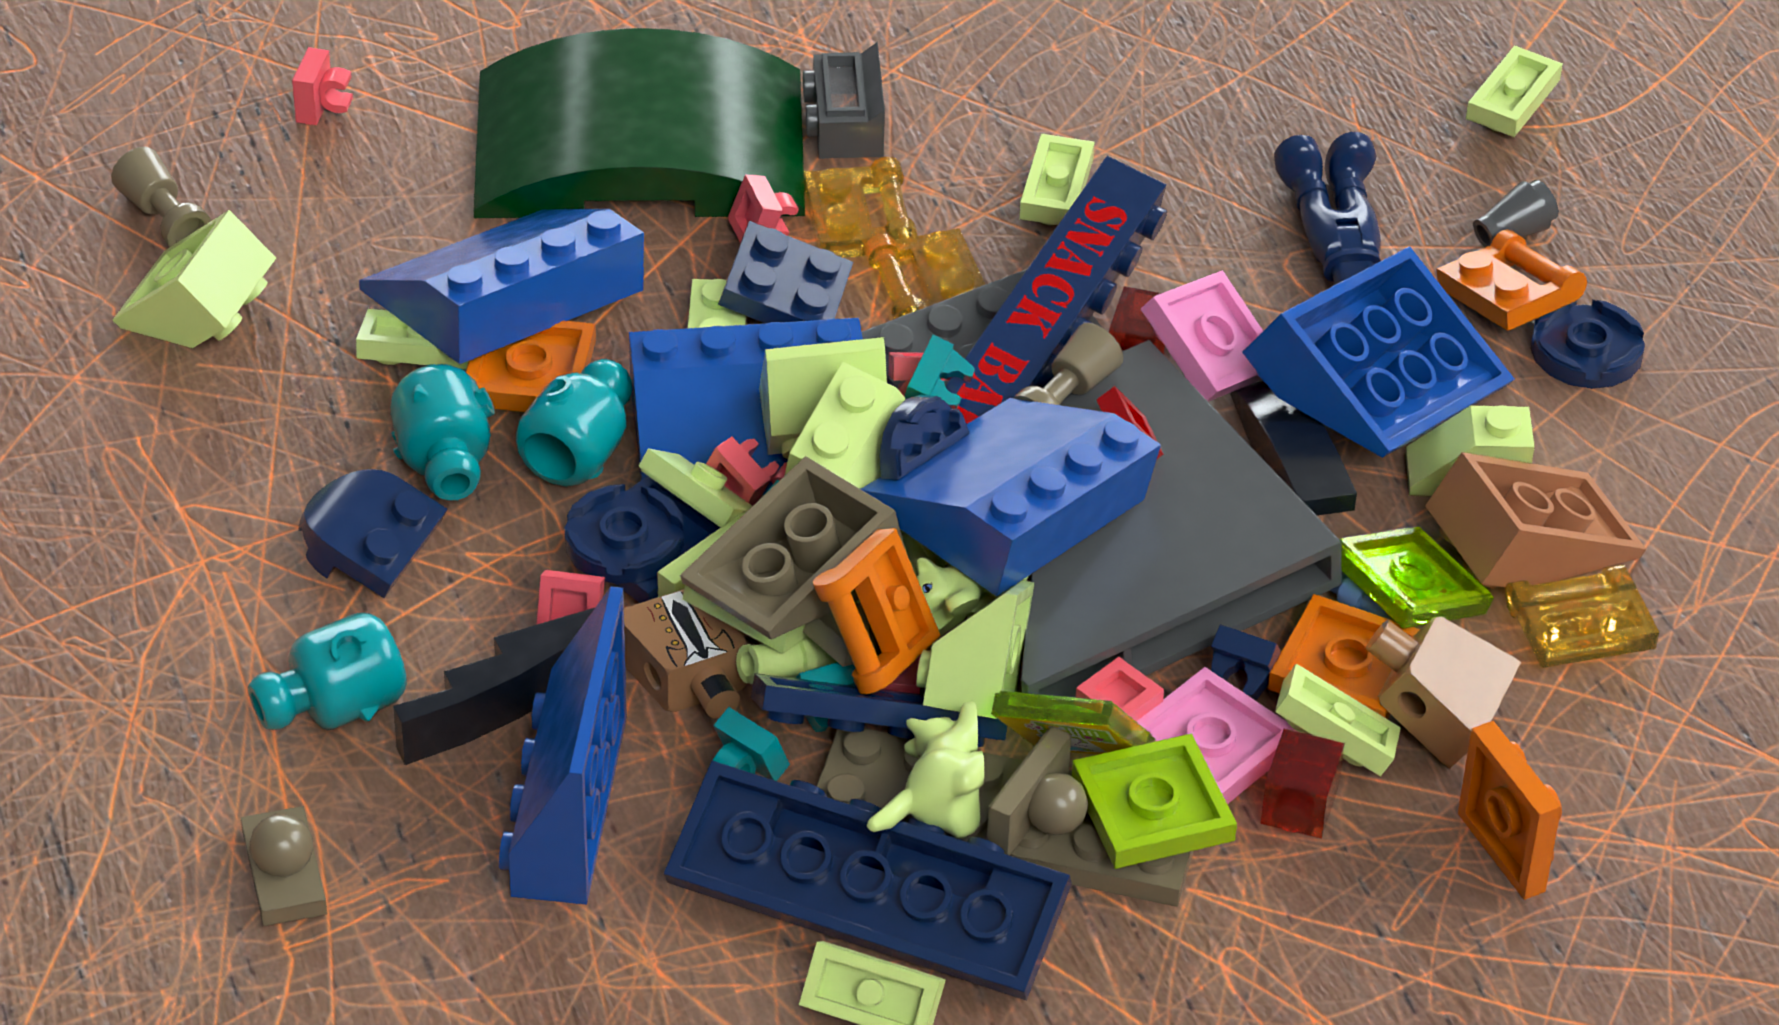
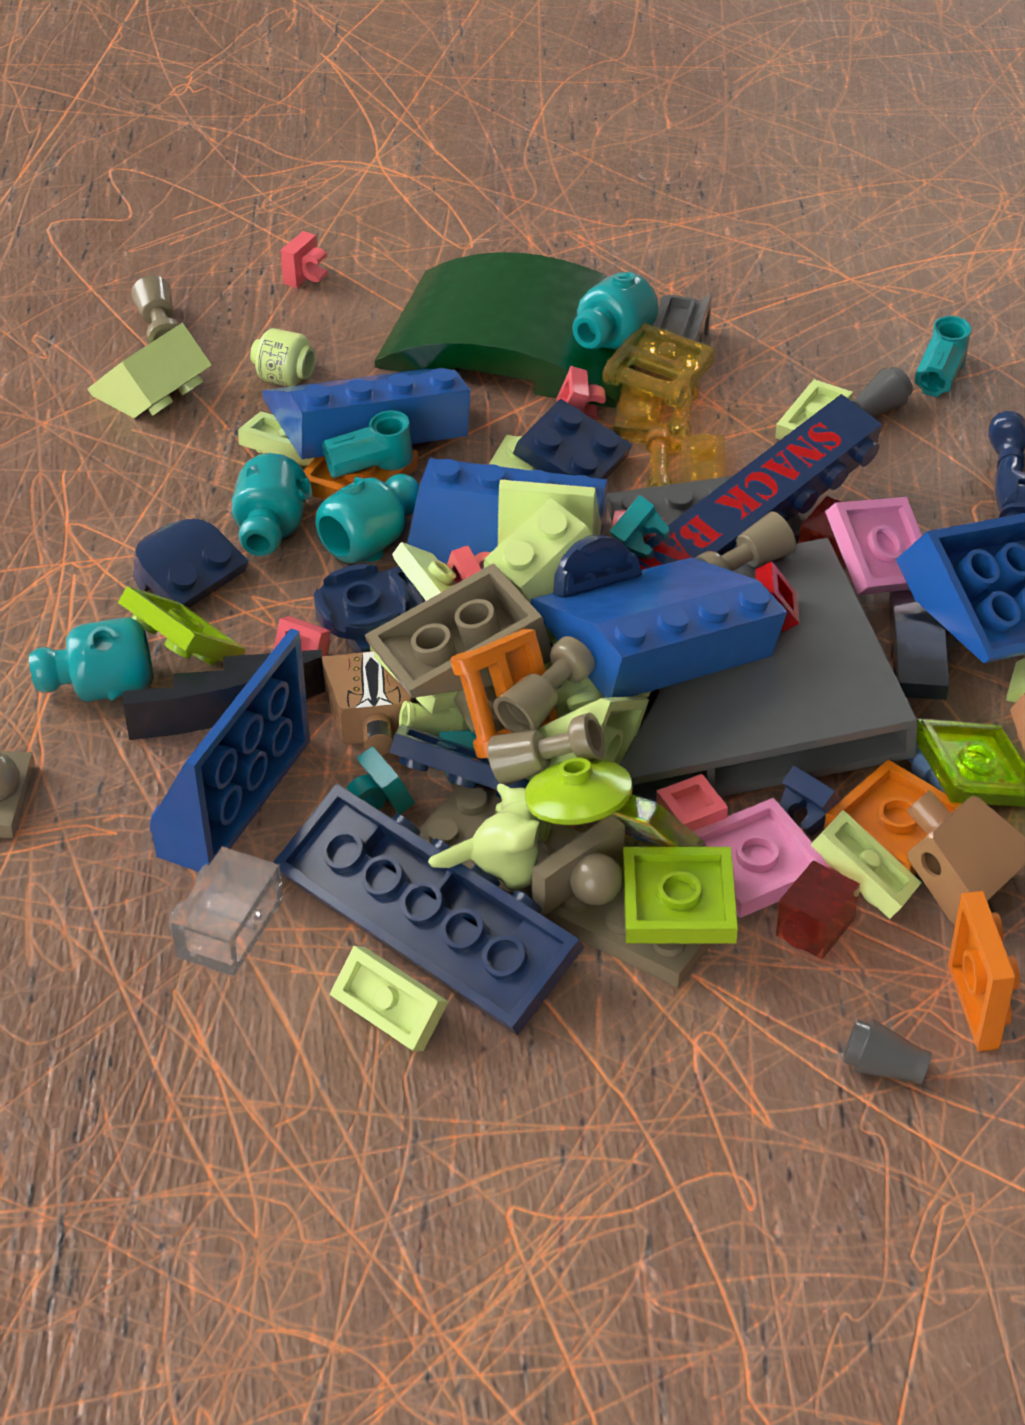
camera: 20 degrees right, 0 degrees up
(358, 228) = (283, 357): none -> yellowish green head
(405, 607) = (183, 628): none -> lime plate
(557, 326) = (381, 444): none -> teal piece
(637, 938) = (226, 910): none -> clear brick
(773, 90) = (614, 311): none -> teal piece
(856, 138) = (663, 354): none -> clear yellow plate
(916, 611) = (535, 696): none -> dark tan piece
(933, 676) = (529, 752): none -> dark tan piece
(1012, 707) = (578, 791): none -> lime dish
(1130, 133) = (885, 392): none -> dark grey cone
(1183, 72) = (944, 355): none -> teal piece
(1432, 923) = (883, 1053): none -> dark grey cone

